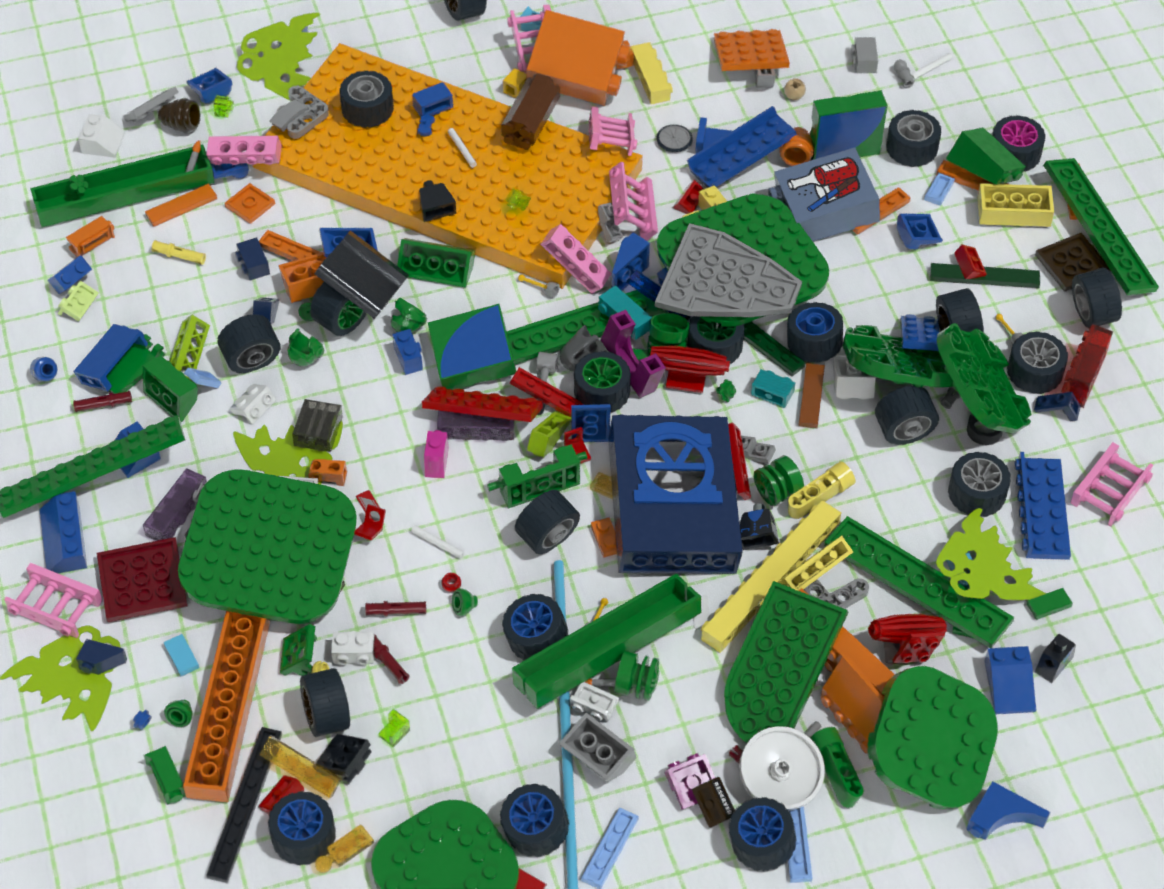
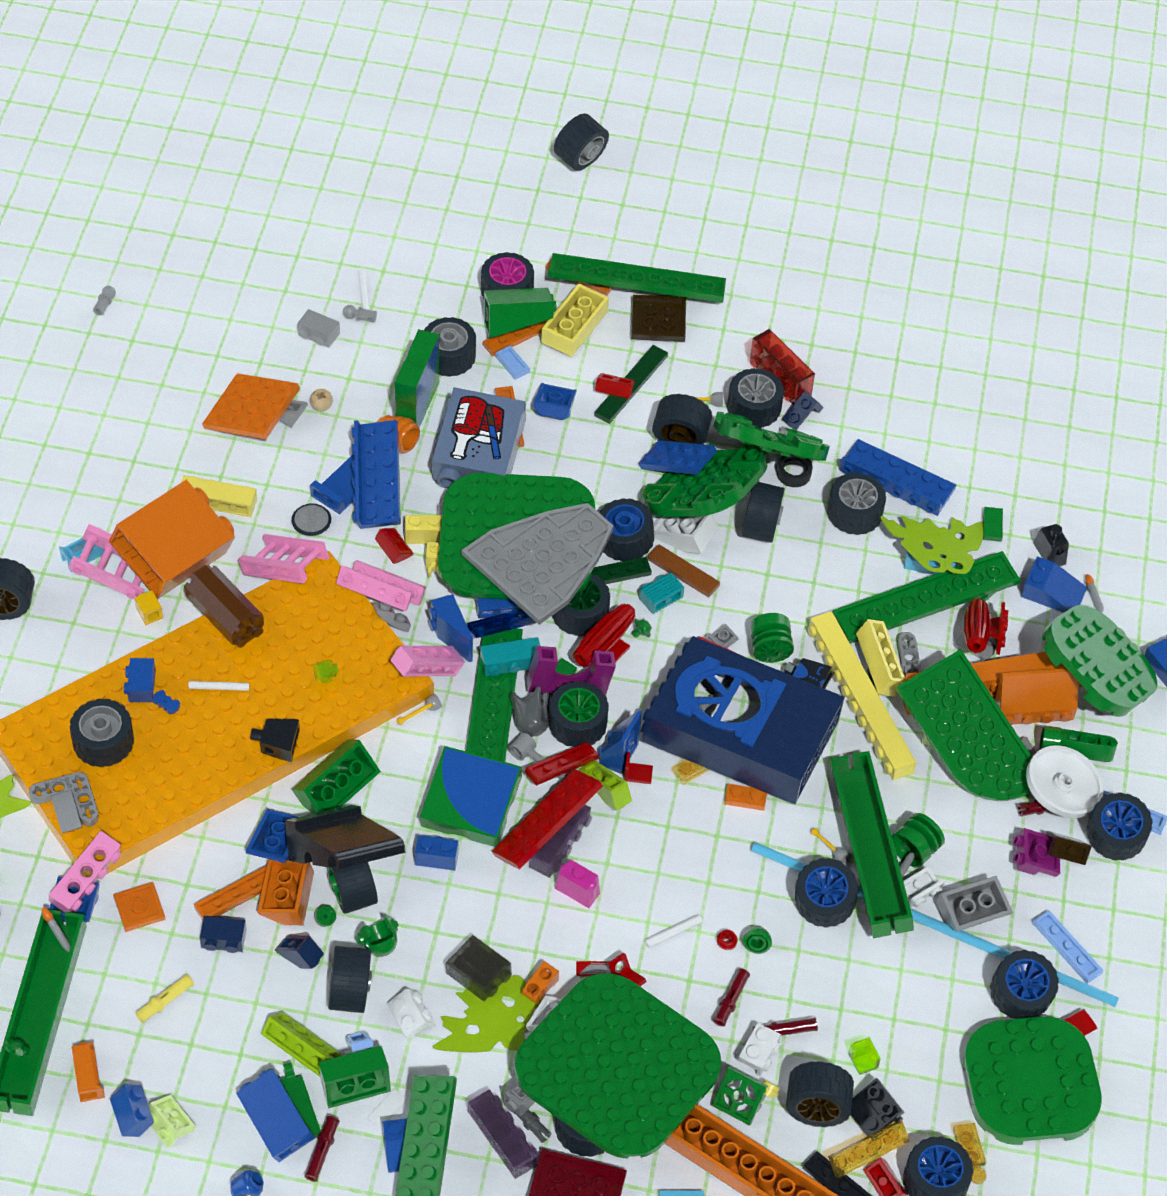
camera: 65 degrees left, 0 degrees up
(181, 205) = (96, 970): orange tile -> none
(409, 317) = (403, 827): green helmet -> none
(523, 488) = (655, 832): green brick -> none
(547, 521) = (719, 828): black wheel -> none
(668, 330) = (563, 633): green wheel -> none
(832, 482) = (791, 598): light yellow beam -> none
(1044, 709) = (1094, 593): none -> light grey piece
(1097, 297) = (720, 321): black wheel -> none
(1100, 469) = (894, 431): bright pink fence -> none

